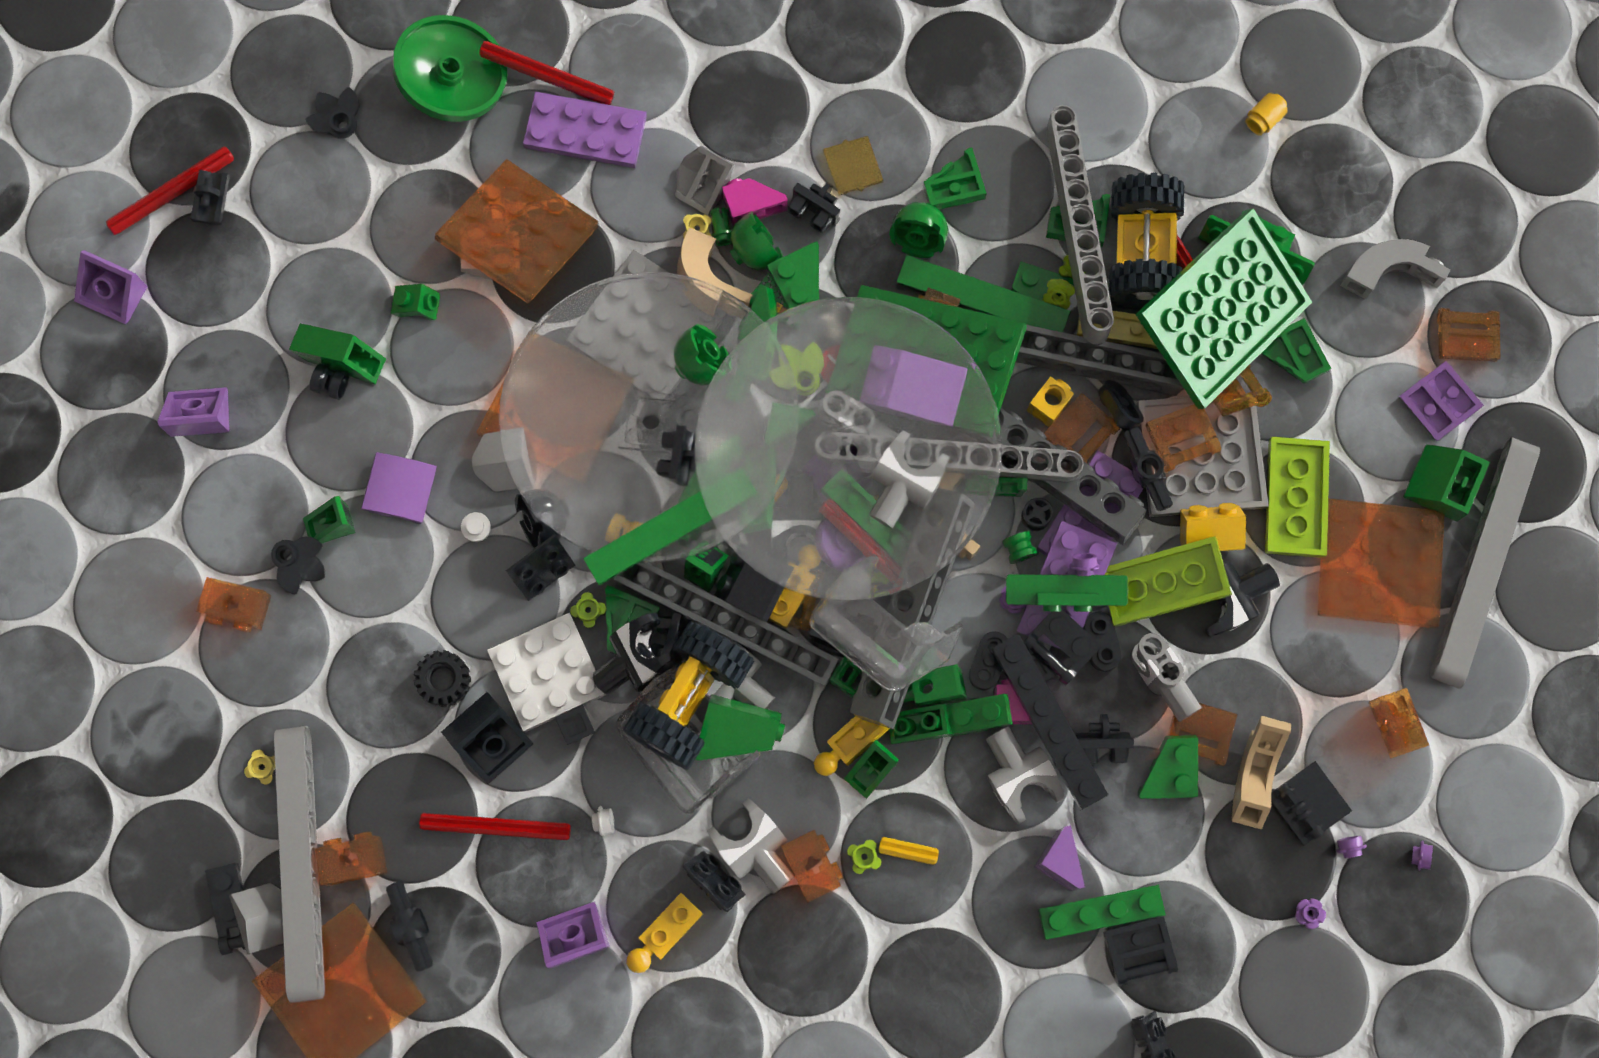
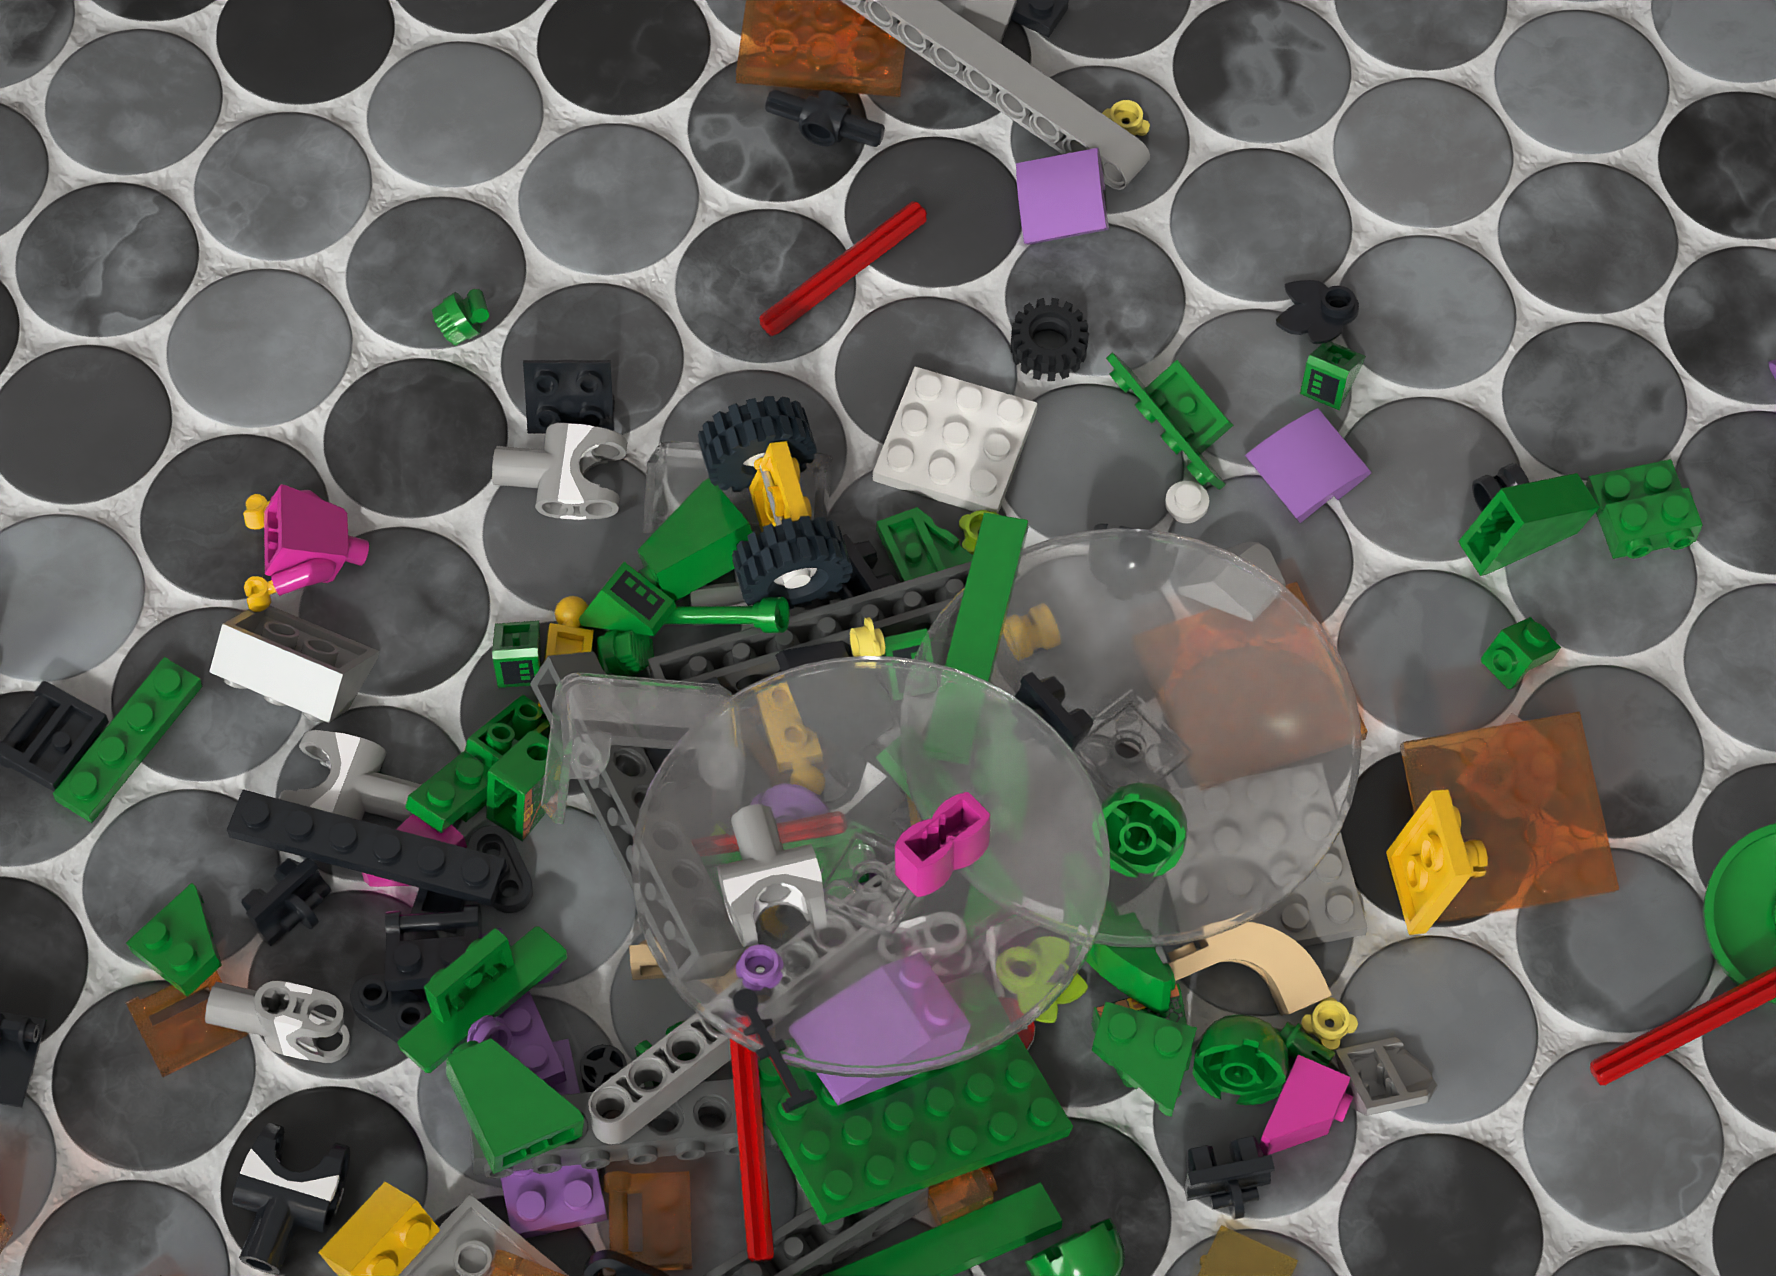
camera: 135 degrees right, 15 degrees down
(195, 412) = (1591, 342): medium lavender slope -> none
(219, 594) = (1327, 218): clear orange brick -> none
(275, 310) = (1644, 509): none -> green plate
(347, 749) = (1061, 196): none -> medium lavender slope
(369, 860) = (945, 119): clear orange brick -> none
(426, 574) = (1183, 411): none -> green bracket
(487, 738) = (943, 325): black slope -> none
(541, 567) = (1073, 501): black hinge -> none
(572, 935) = (656, 240): medium lavender slope -> none
(574, 724) = (869, 416): black plate -> none
(582, 231) = (1433, 861): none -> yellow plate
(585, 129) = (1580, 1011): medium lavender plate -> none
(603, 821) = (741, 362): white plate -> none
(634, 657) = (877, 509): black connector -> none
(664, 933) = (571, 316): yellow plate -> none
(714, 994) = (461, 317): none -> green piece
(720, 581) = (867, 640): none -> light yellow plate
(750, 643) = (769, 615): none -> green piece
(797, 856) = (484, 504): clear orange brick -> none
(803, 729) = (629, 604): none -> green slope
(805, 412) = (942, 844): none -> dark pink brick
(824, 714) = (624, 652): none -> green piece
(867, 848) = (436, 555): lime plate -> none
(908, 850) = (398, 612): yellow axle -> none
(923, 931) = (302, 543): none -> dark pink torso
(953, 432) = (756, 957): none -> medium lavender plate
(979, 426) = (746, 1004): none -> black piece
(985, 871) = (292, 662): none -> slope
(1020, 547) = (586, 1016): green wheel -> none
(1031, 380) = (752, 1153): none -> red axle
(1049, 413) = (712, 1195): yellow brick -> none
(1061, 860) = (214, 727): medium lavender slope -> none
(1112, 512) = (509, 1105): none -> green slope
(1141, 455) = (542, 1237): black axle -> none
(1171, 580) = (373, 1128): lime plate -> none
(1257, 772) = (73, 1014): tan arch -> none

